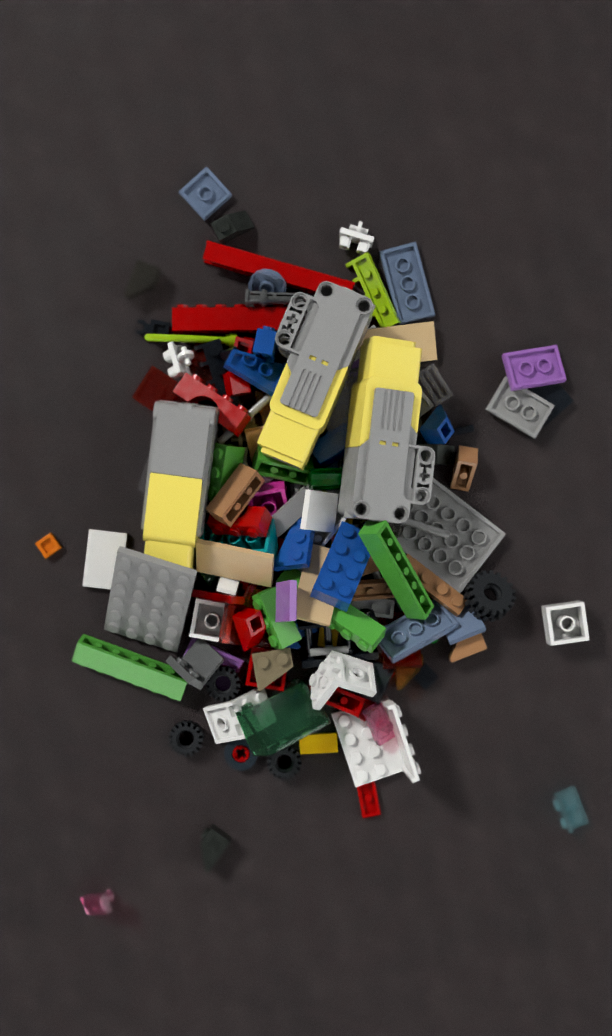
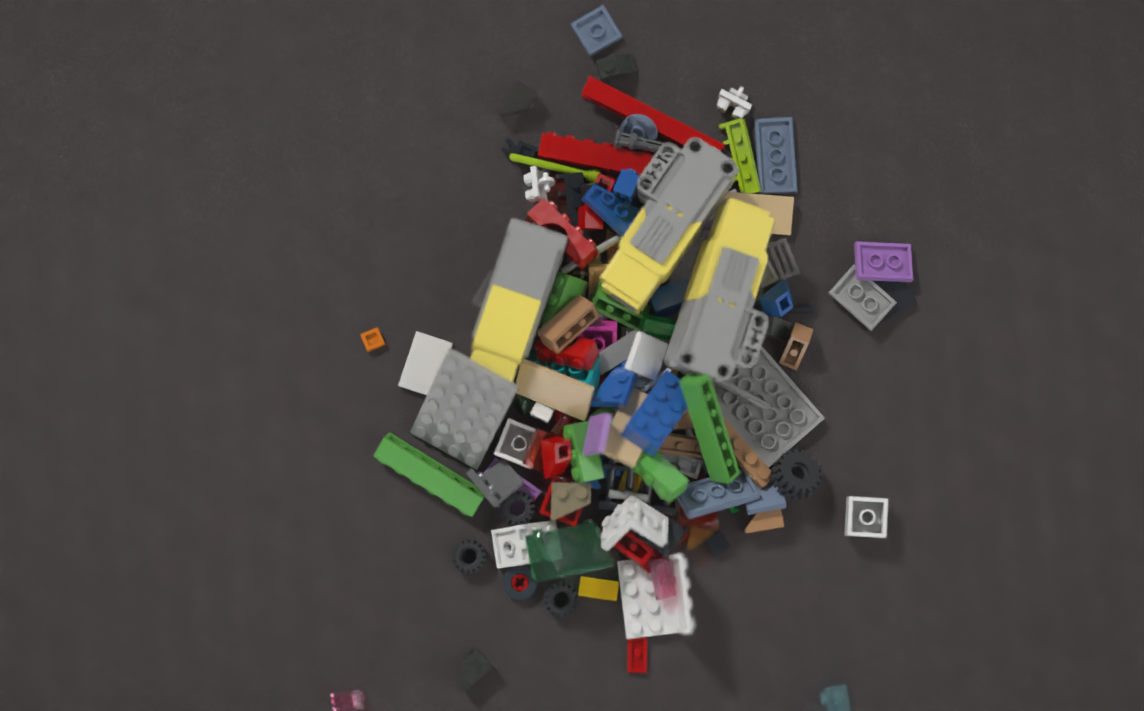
camera: 15 degrees right, 5 degrees down
(155, 387) = (507, 206): clear red tile -> none
(217, 596) = (531, 421): red tile -> none

